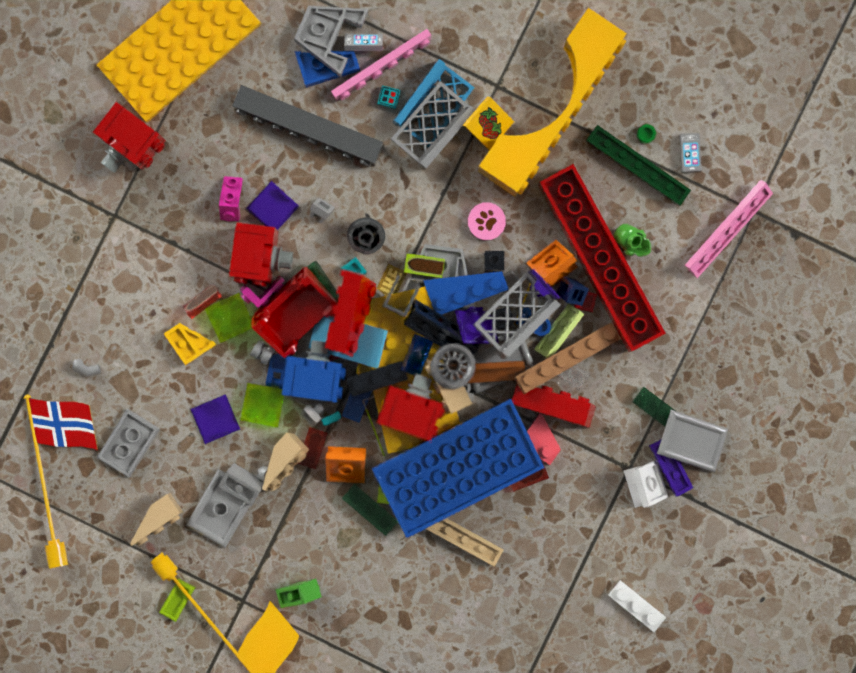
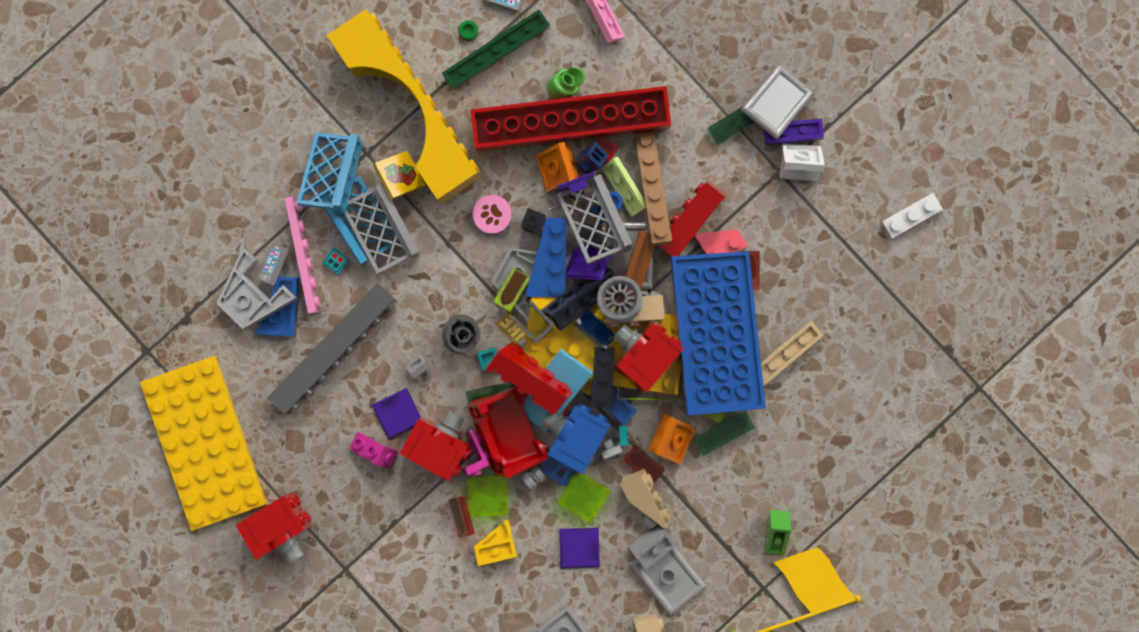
camera: 70 degrees left, 0 degrees up
(473, 74) = (346, 172): none -> dark azure fence

